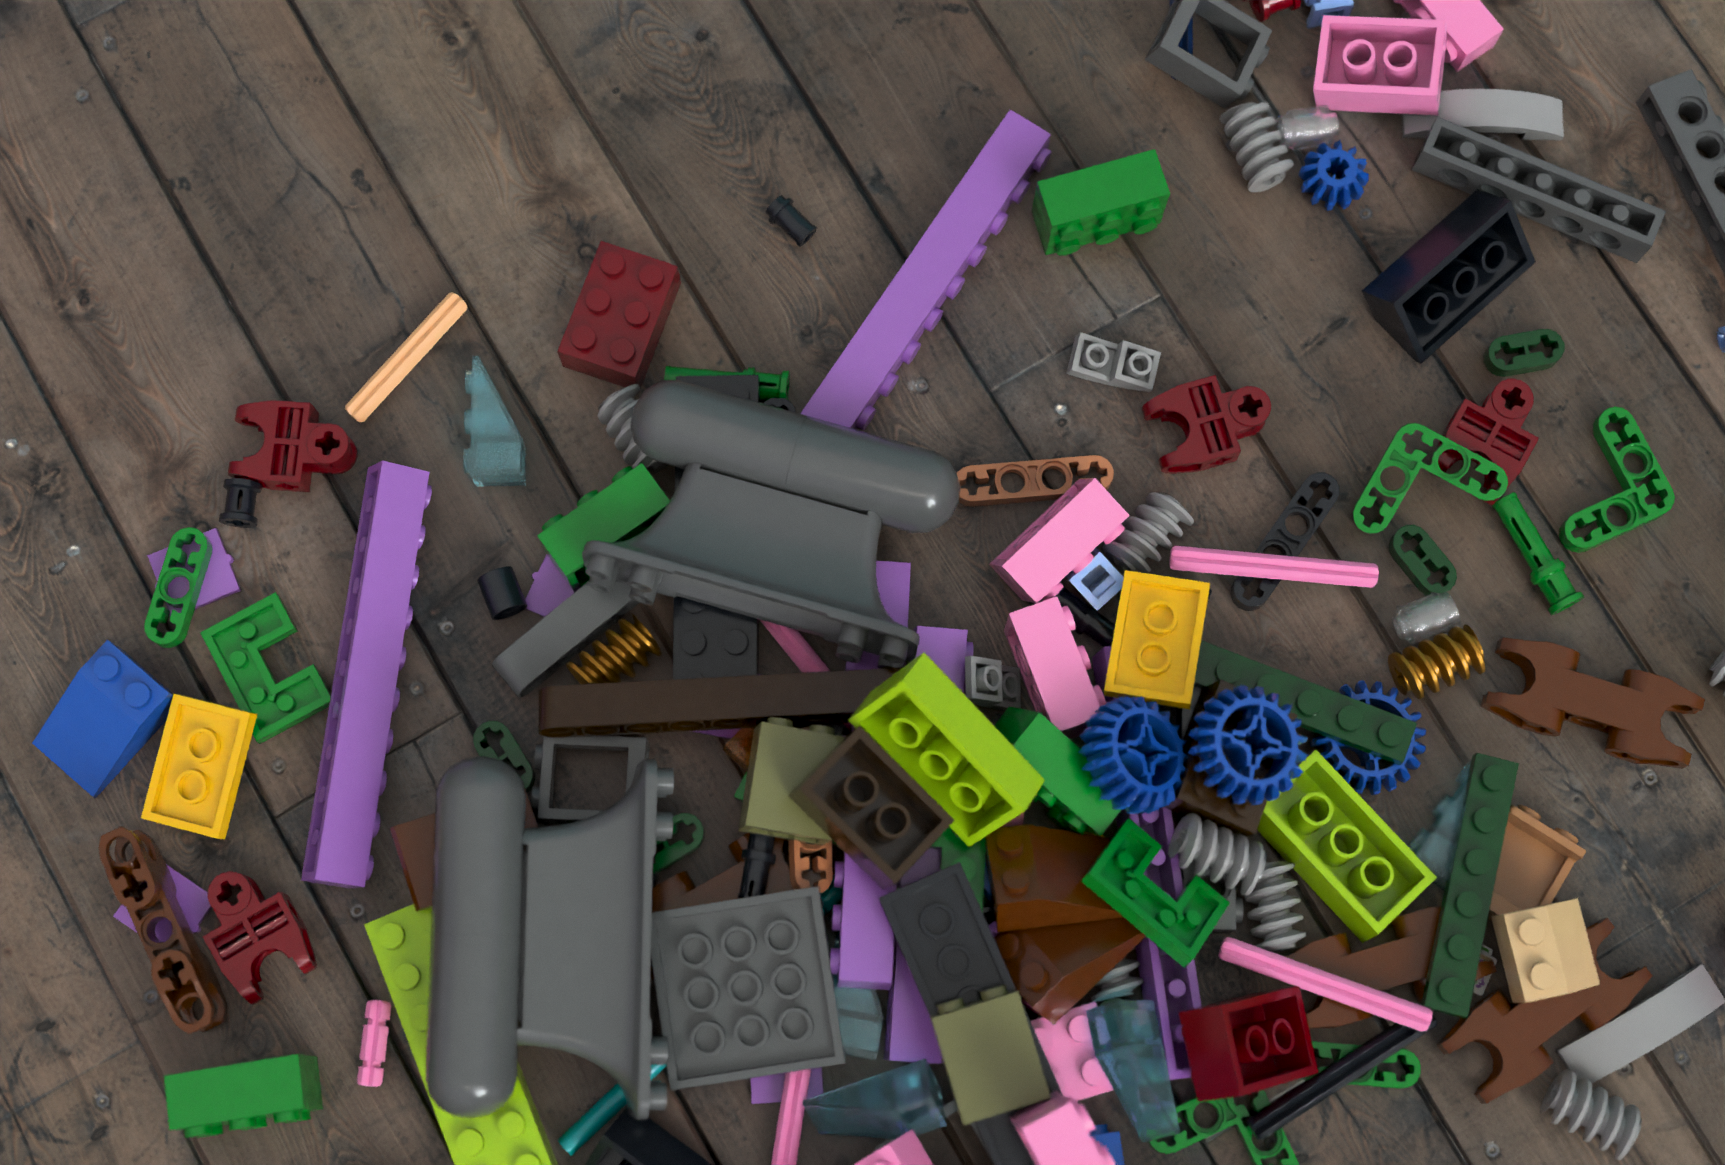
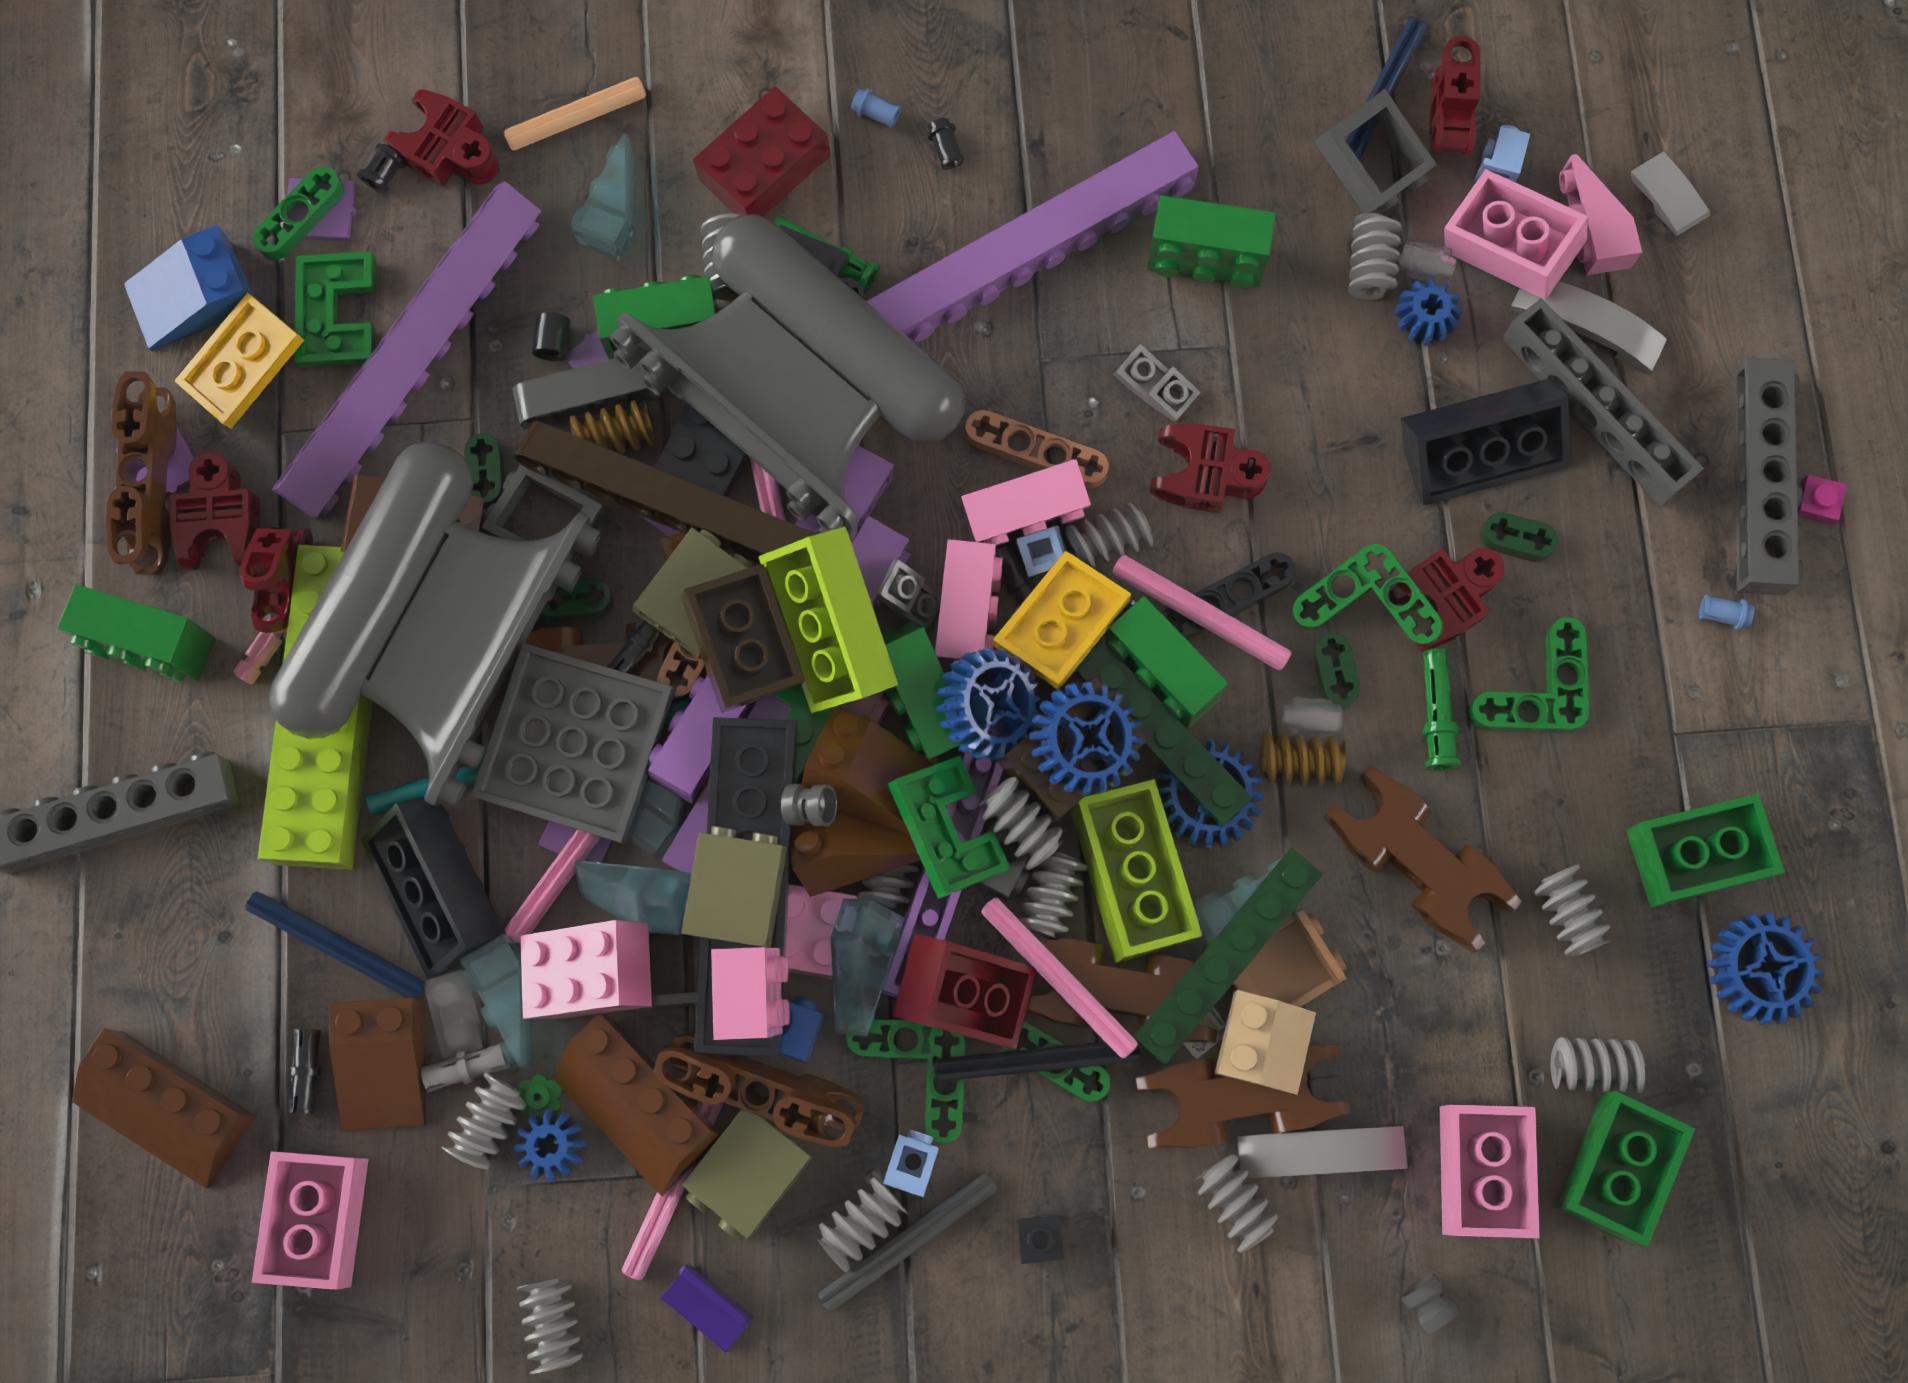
camera: 30 degrees right, 0 degrees up
(354, 966) = (270, 572): none -> dark red piece
(703, 216) = (875, 108): none -> medium blue pin
(1016, 938) = (807, 804): none -> dark grey wheel
(1270, 631) = (1166, 662): none -> green brick

